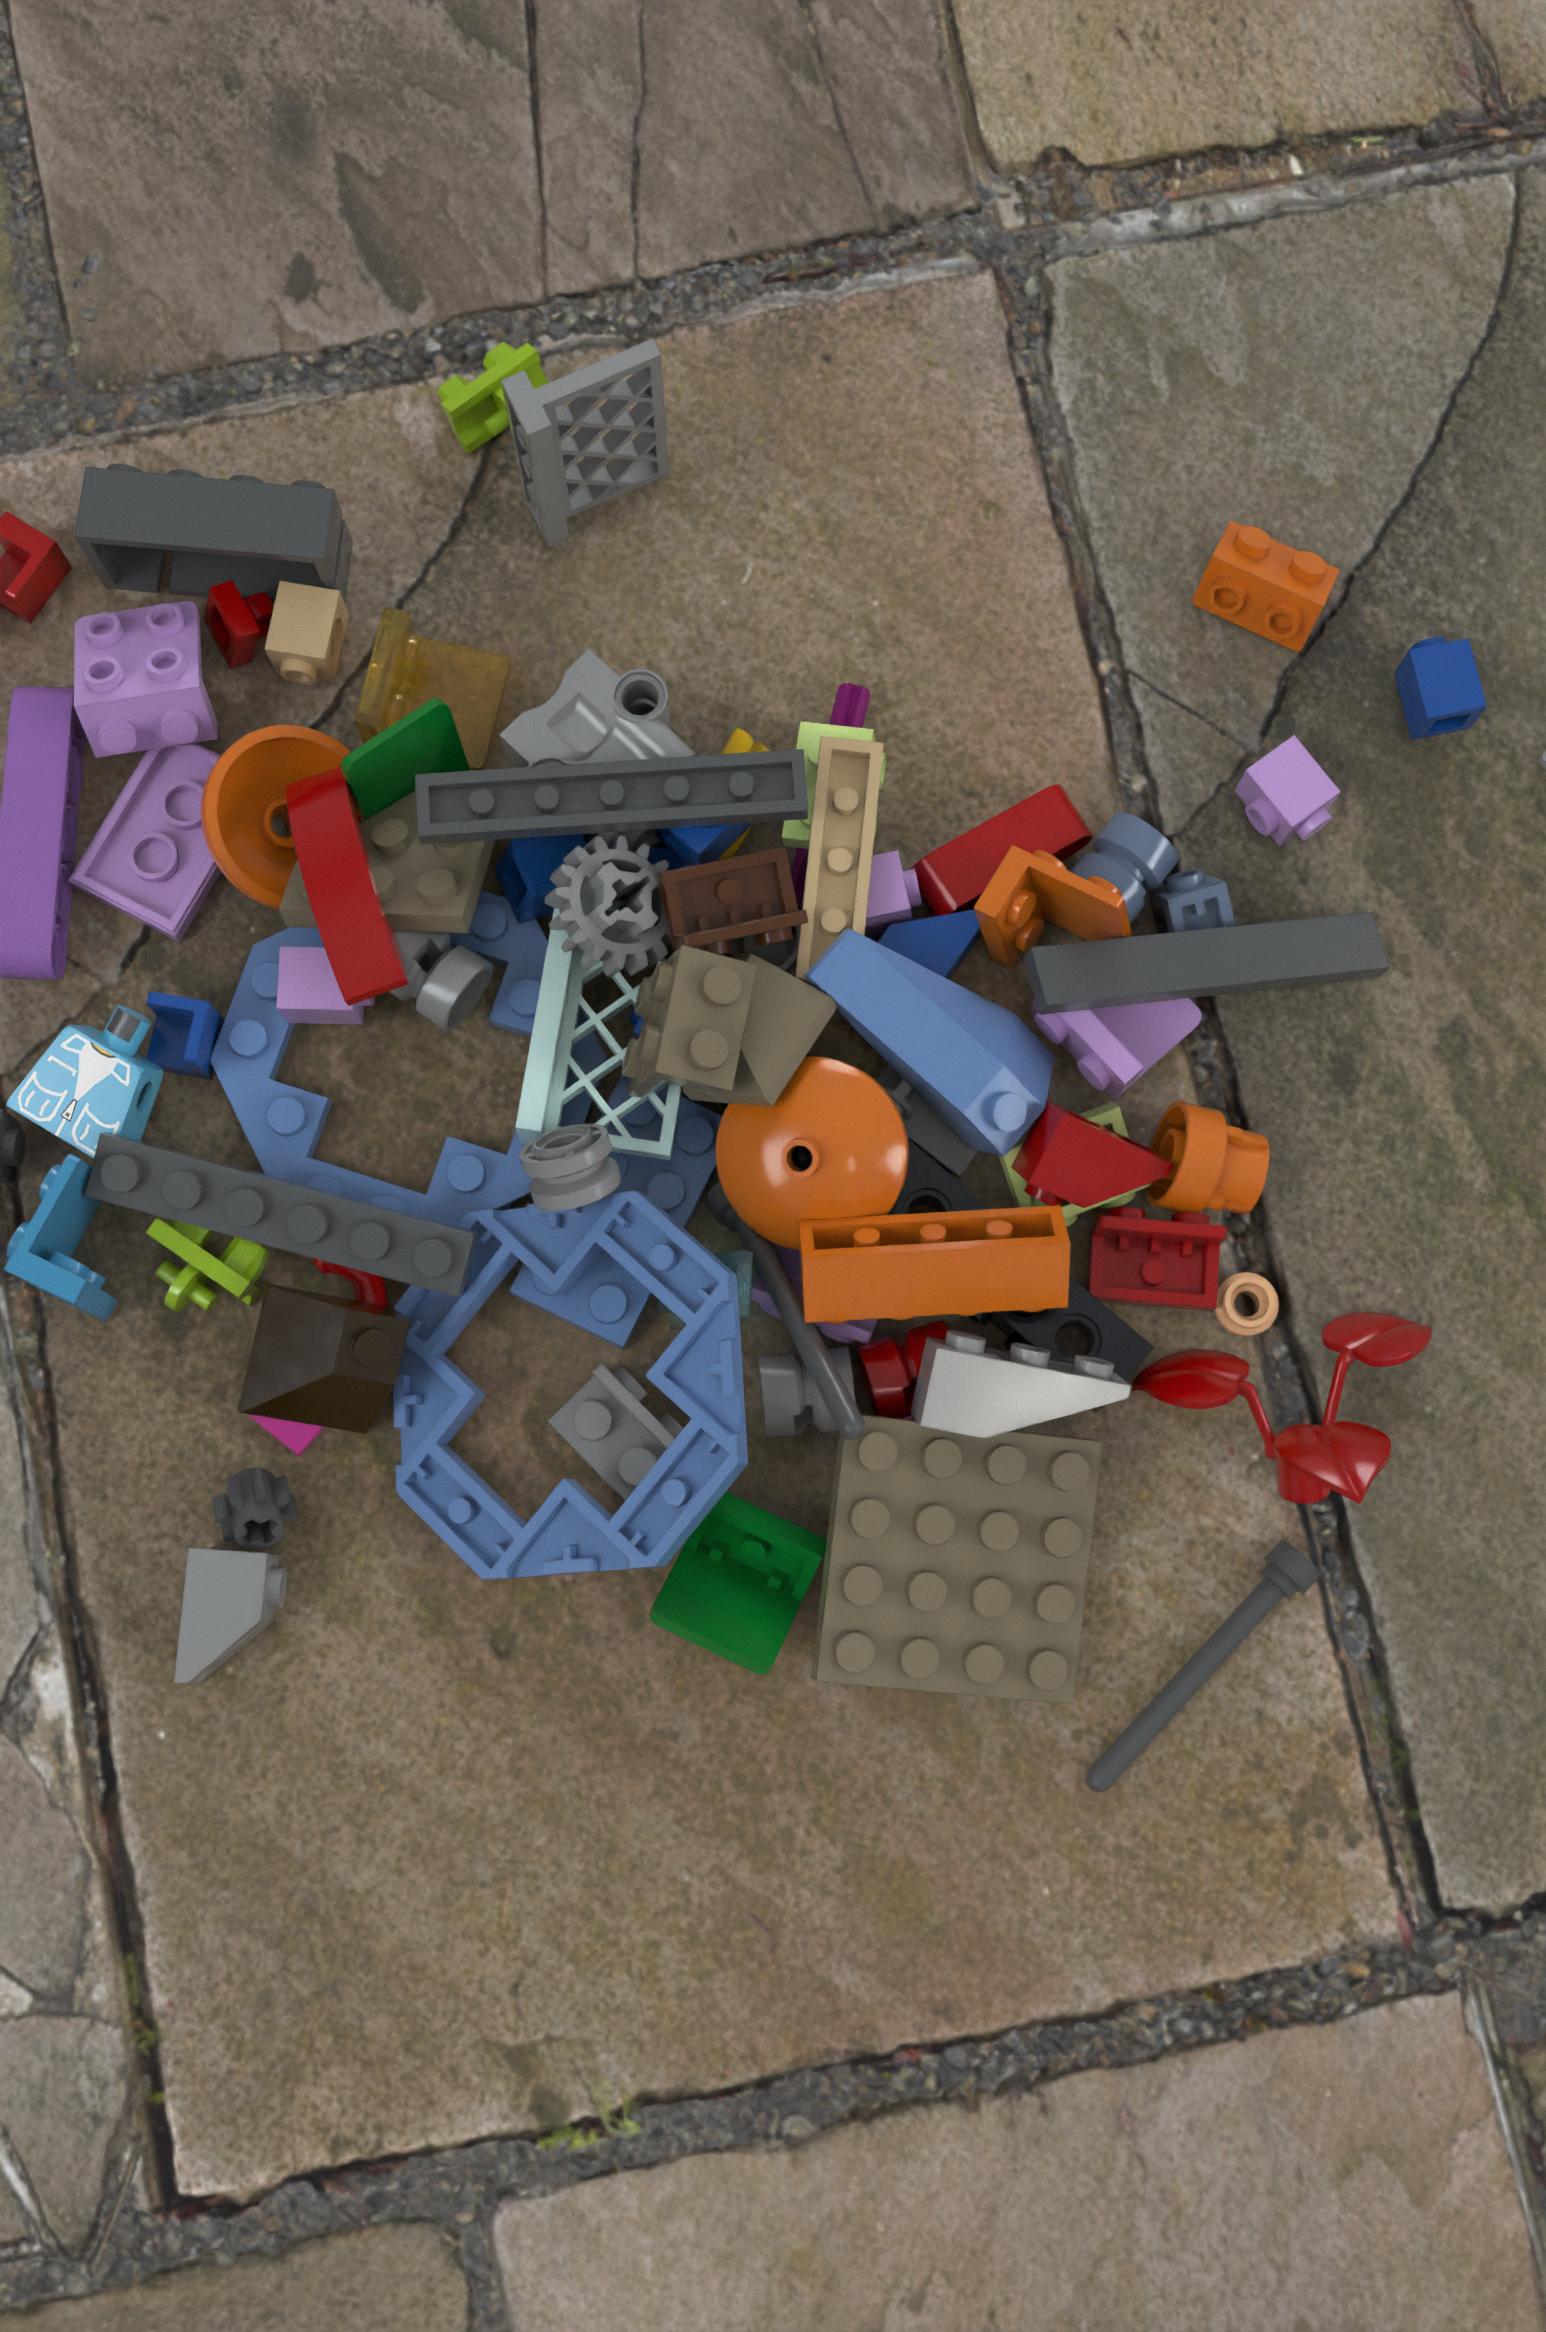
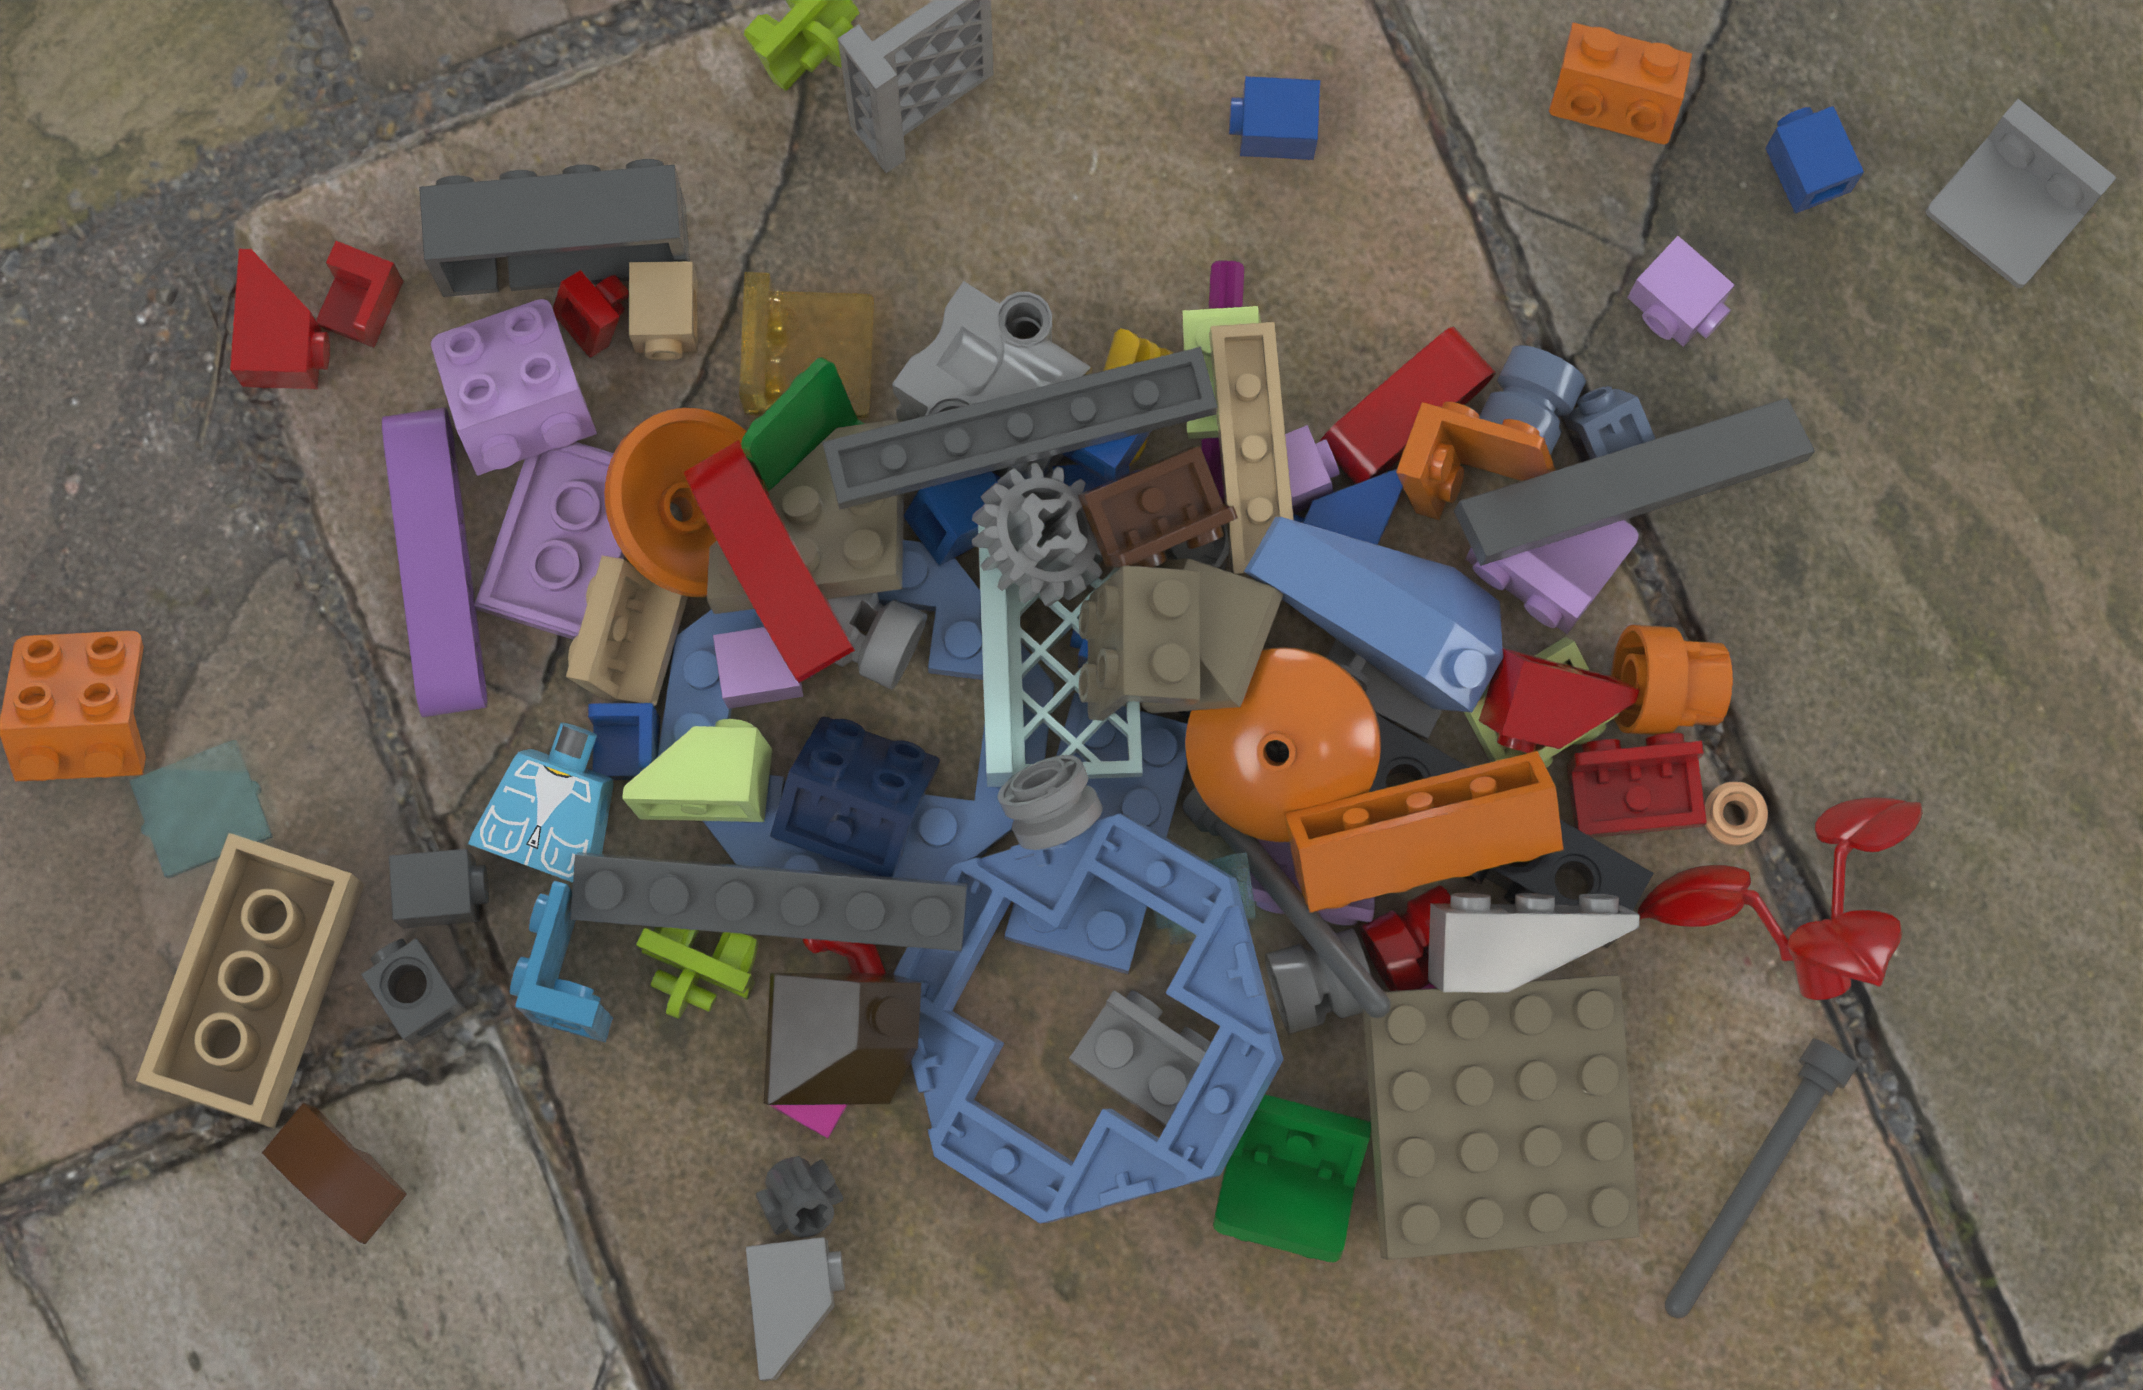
camera: 10 degrees left, 0 degrees up
(201, 933) = (625, 635): none -> tan bracket
(248, 1082) = (706, 777): none -> yellowish green slope
(387, 1127) = (853, 796): none -> dark blue bracket
(928, 558) = (1276, 117): none -> blue brick

